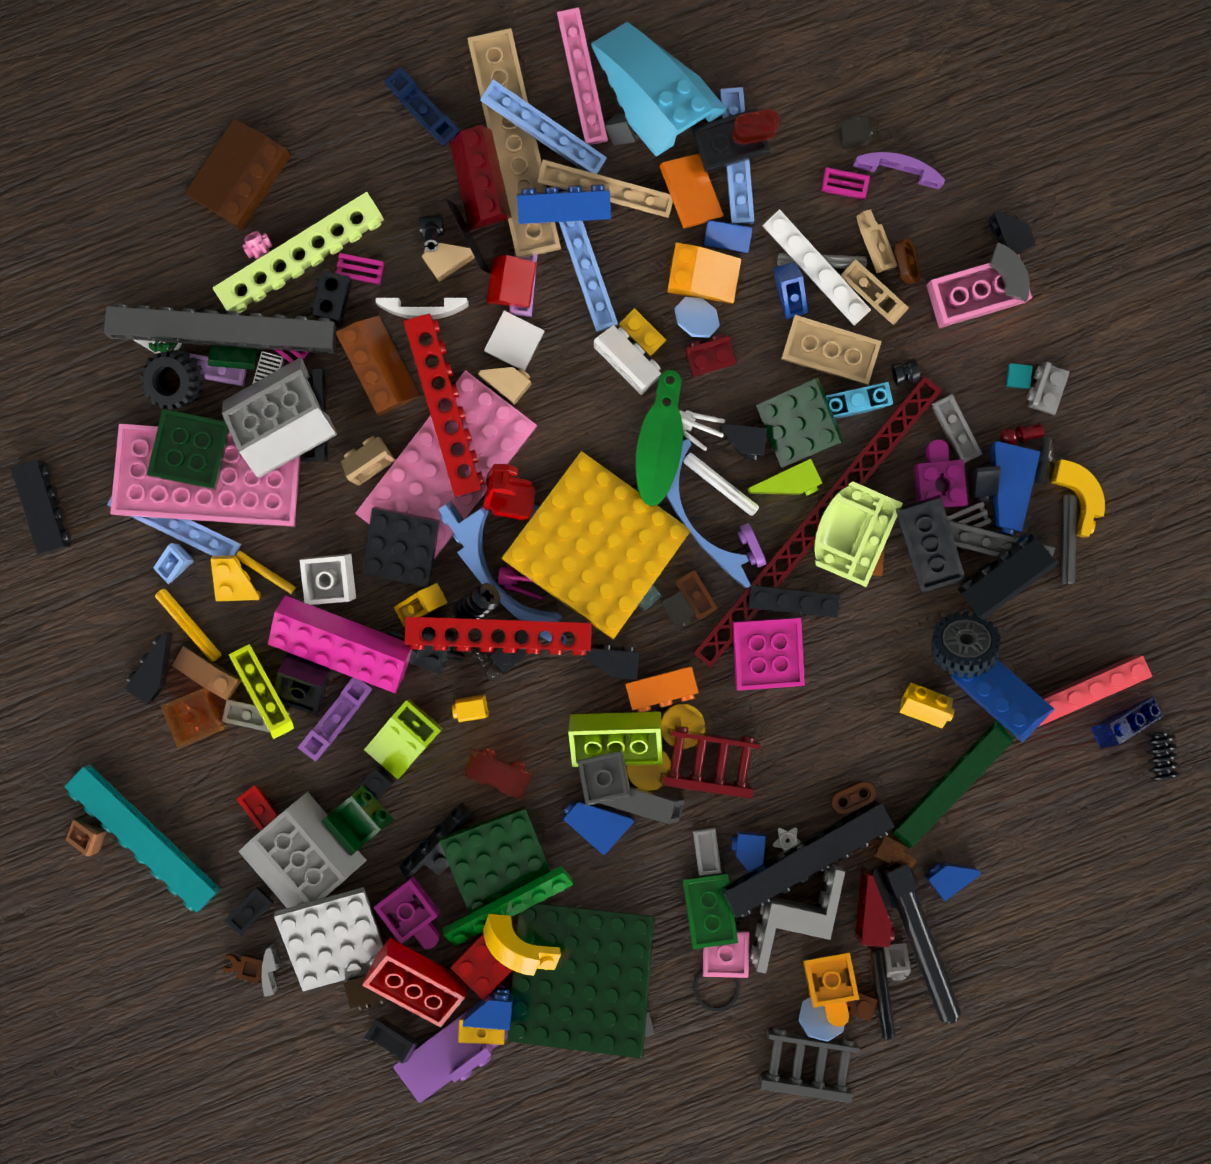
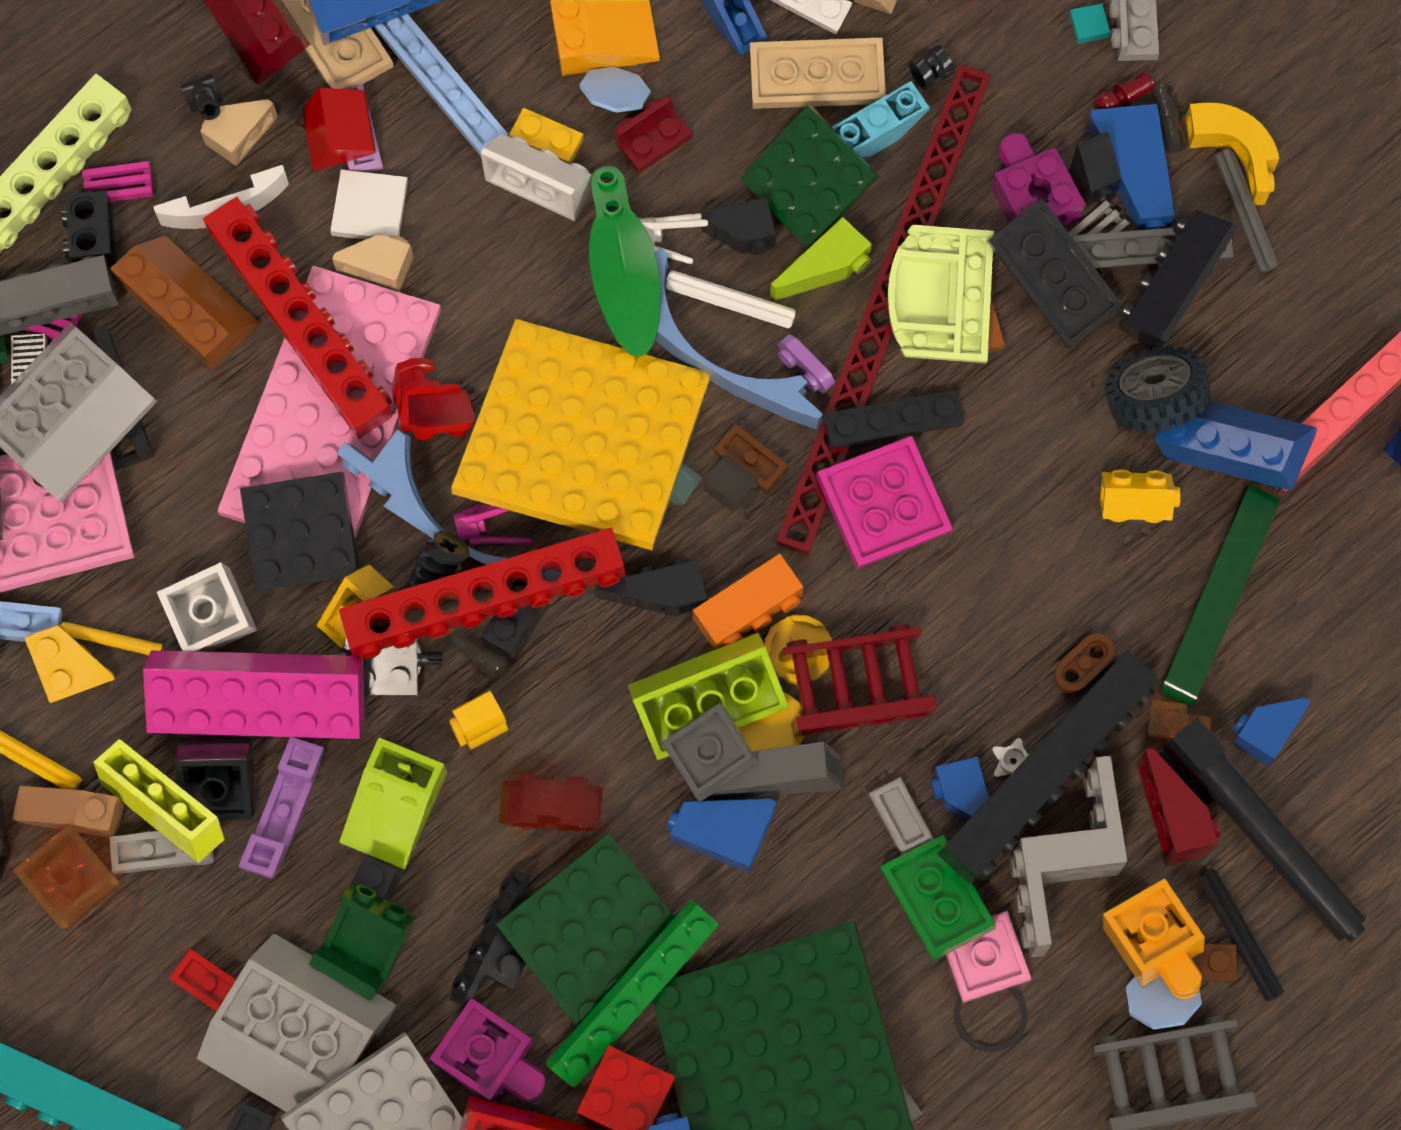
camera: 15 degrees left, 15 degrees down
(367, 460) = (214, 429): tan slope -> none
(515, 952) = (667, 1043): yellow arch -> none
(897, 961) = (1241, 877): light grey bracket -> none
(956, 428) = (1030, 118): light grey tile -> none

